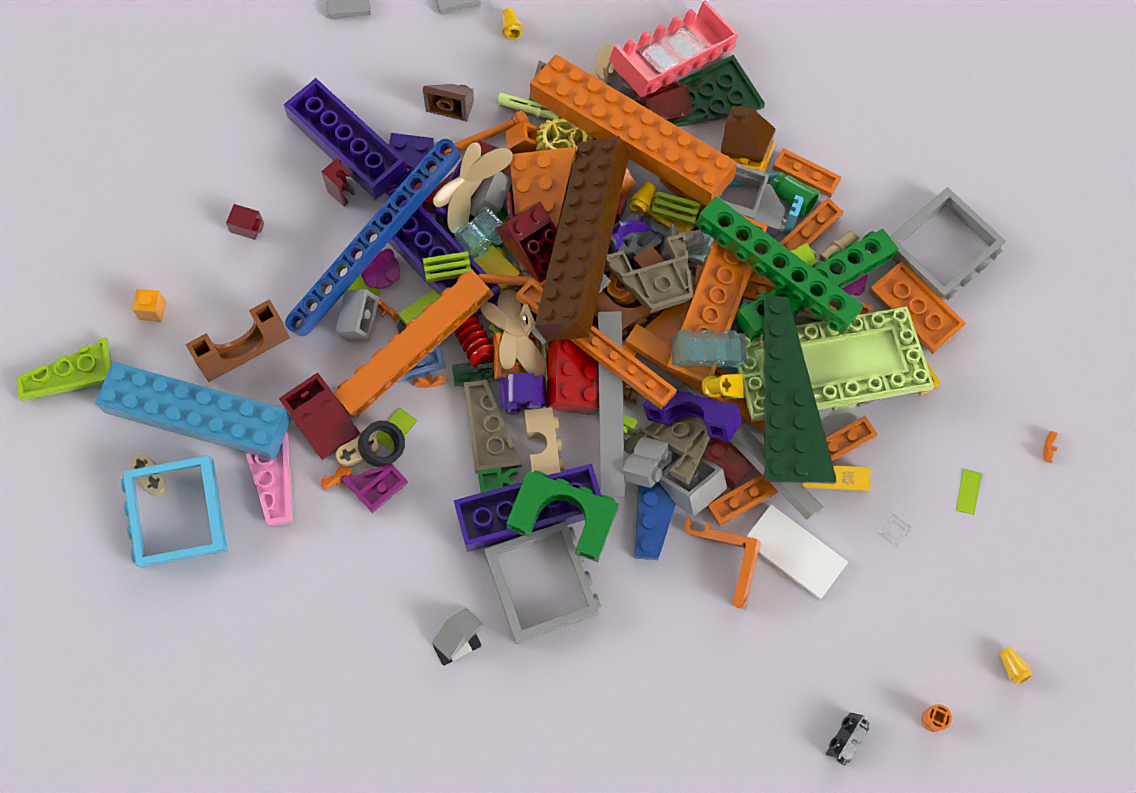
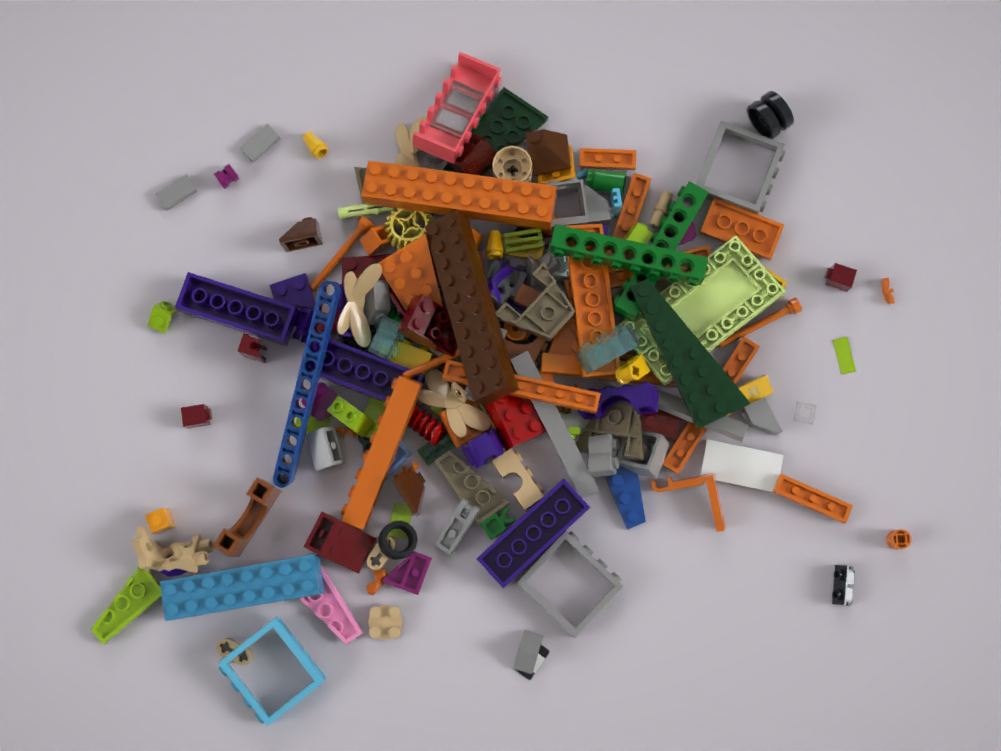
camera: 20 degrees left, 10 degrees up
(134, 349) = (183, 557): none -> tan hips
(266, 111) = (161, 316): none -> lime bracket
(321, 523) = (385, 622): none -> tan piece
(401, 294) = (350, 416): none -> lime brick
(406, 12) = (226, 176): none -> magenta wheel
(424, 400) = (412, 490): none -> reddish brown slope
(447, 266) = (362, 388): lime tile -> none
(451, 461) = (456, 527): none -> light grey plate
(539, 491) = (588, 515): green arch -> none
(704, 124) = (513, 159): none -> tan wheel
(842, 509) = (761, 417): none -> light grey slope
(858, 624) = (812, 498): none -> orange plate
(935, 412) = (791, 307): none -> orange piece
(1003, 405) = (840, 277): none -> dark red brick
(1004, 204) = (770, 115): none -> black wheel
(1016, 667) = (936, 472): yellow cone -> none

